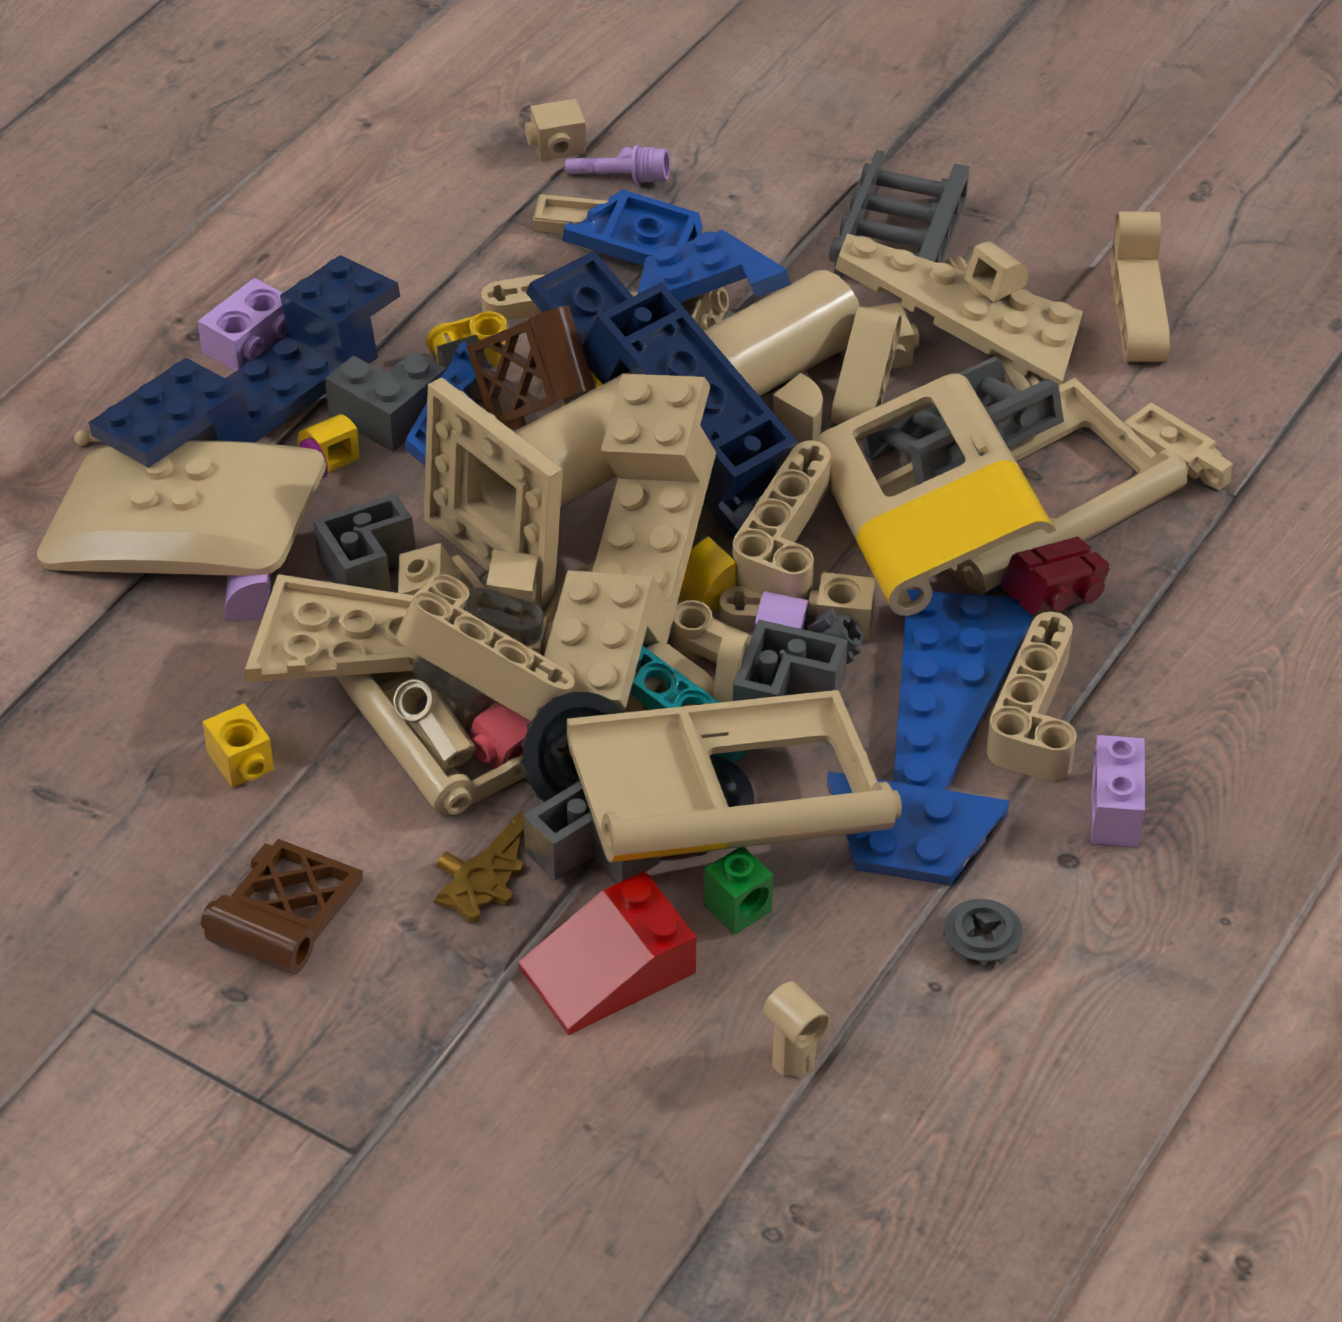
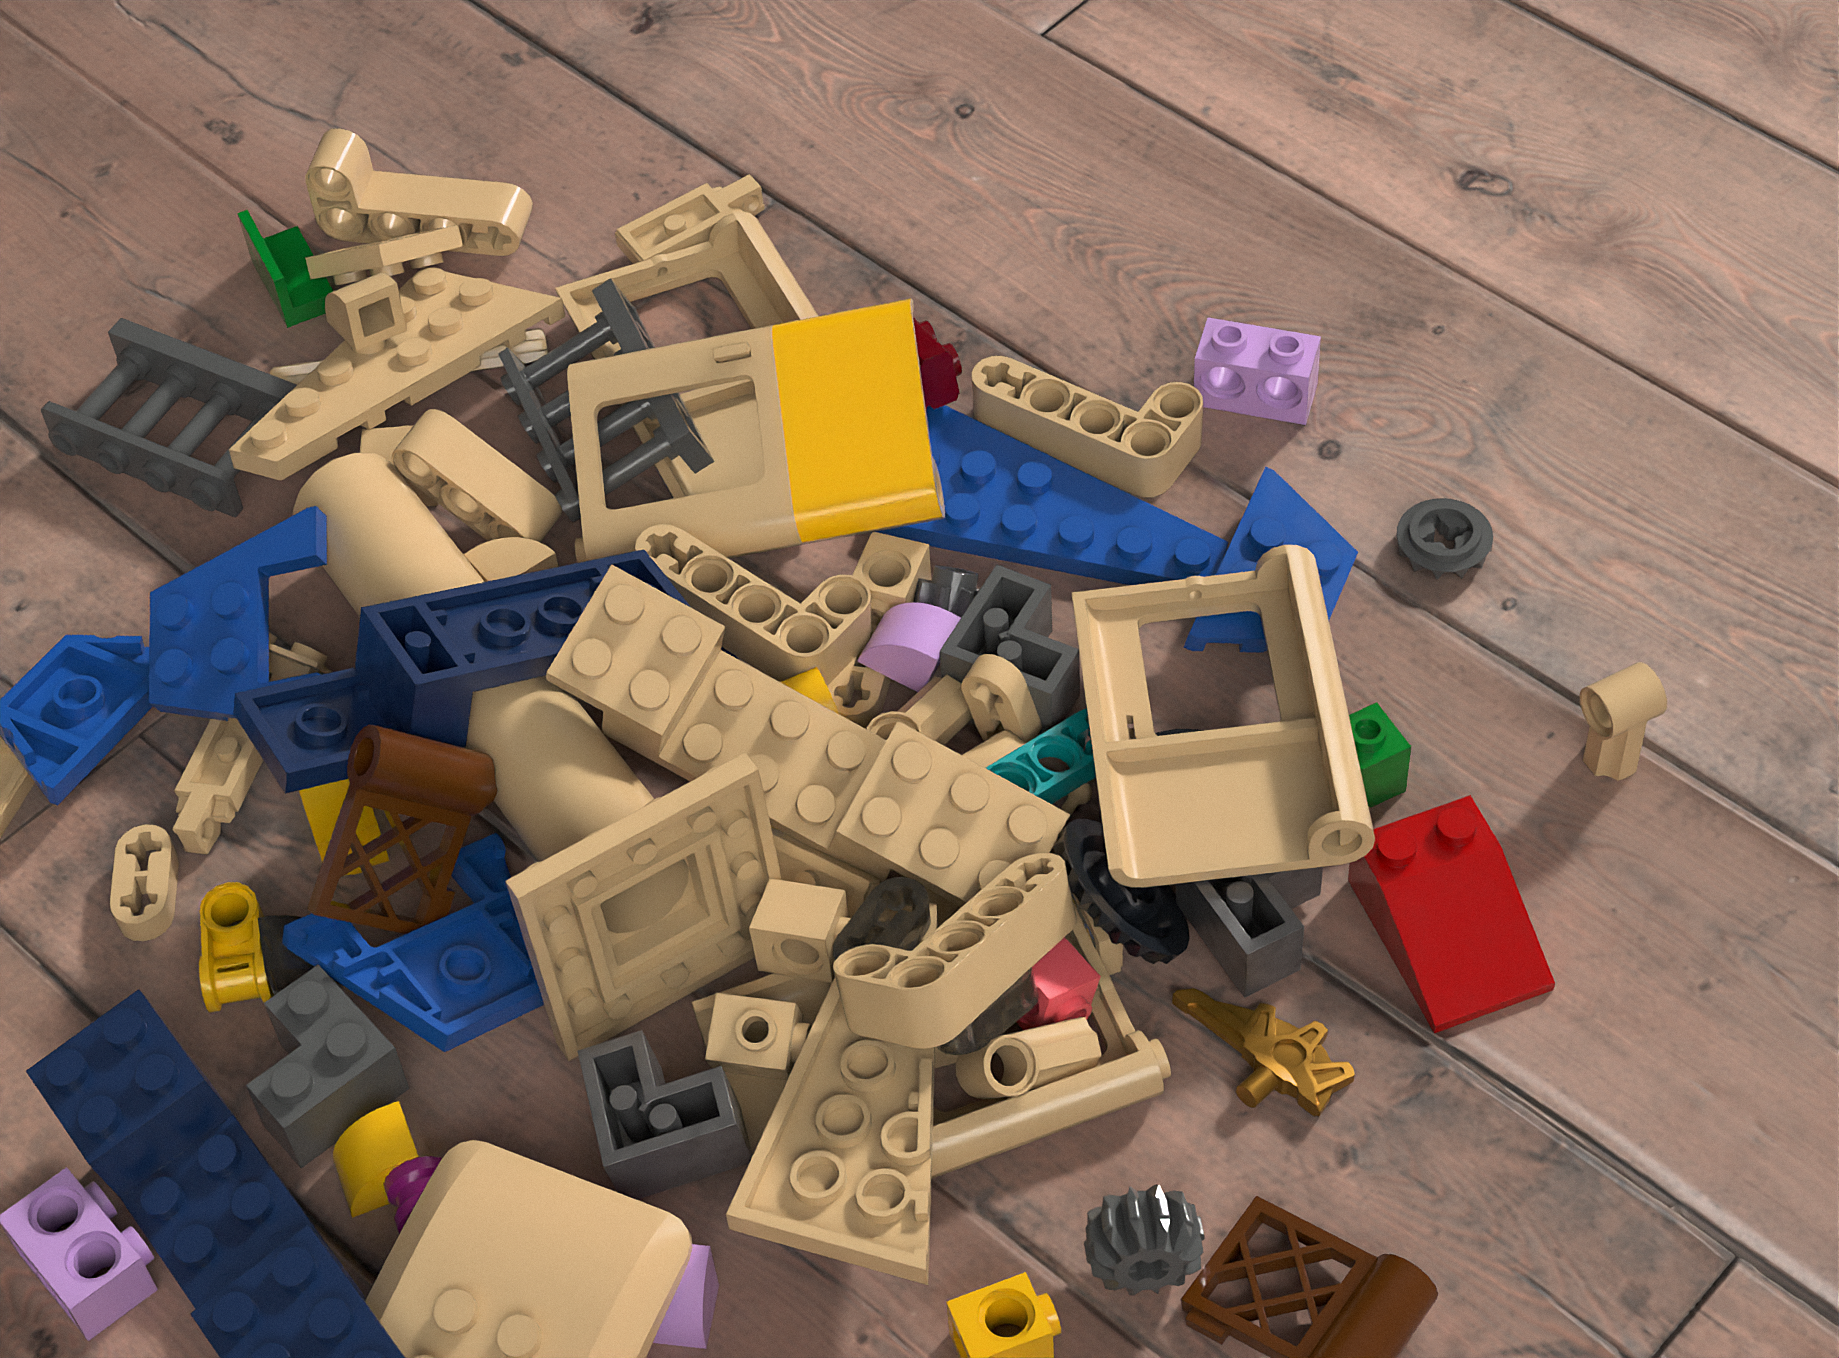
camera: 75 degrees left, 5 degrees up
(305, 800) = (1144, 1240): none -> dark grey gear
(1058, 242) = (285, 272): none -> green panel
(1070, 276) = (386, 256): none -> tan plate

